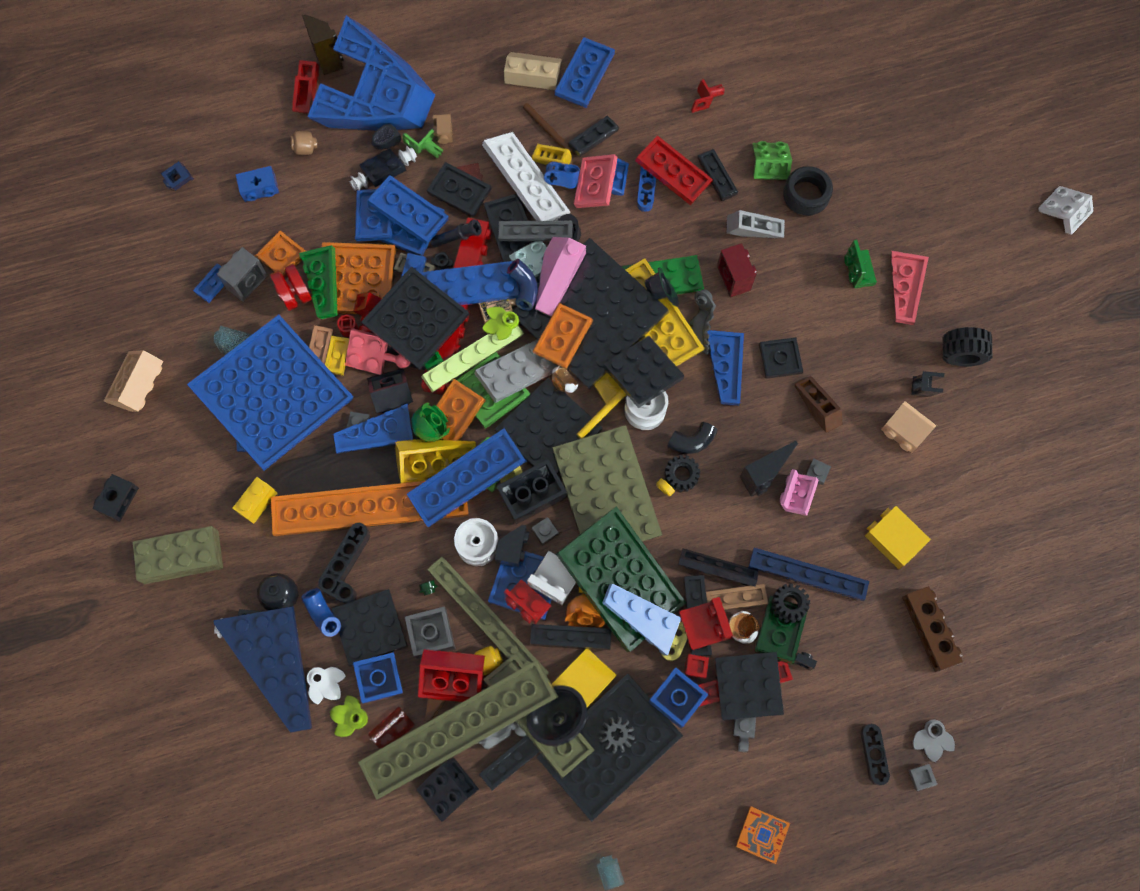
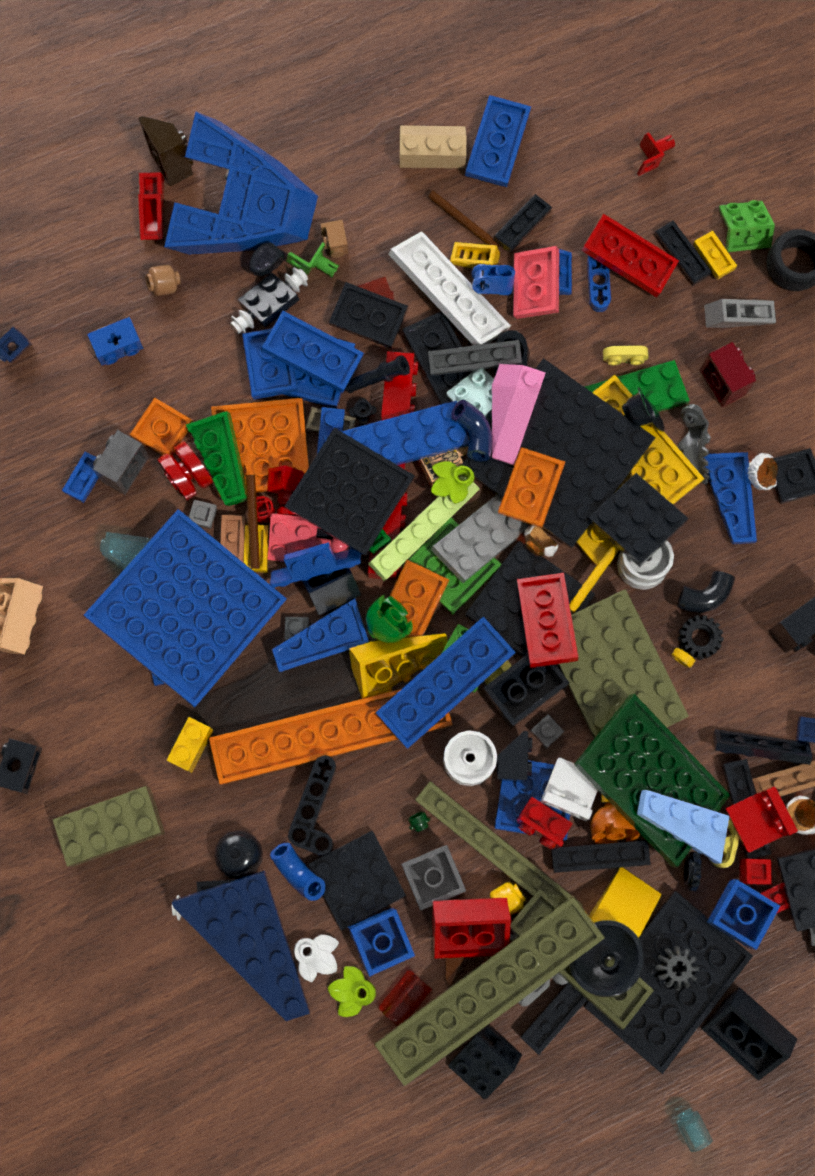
camera: 10 degrees left, 5 degrees up
(300, 323) = (203, 513): none -> light grey plate
(336, 333) = (253, 522): none -> reddish brown bar
(377, 369) = (313, 562): none -> blue bracket
(556, 440) = (547, 620): none -> red plate
(643, 658) = (692, 871): none -> black gear
(658, 245) = (621, 354): none -> light yellow plate
(670, 800) = (750, 1034): none -> black slope
(742, 179) = (714, 255): none -> yellow plate
(753, 349) = (763, 471): none -> hair

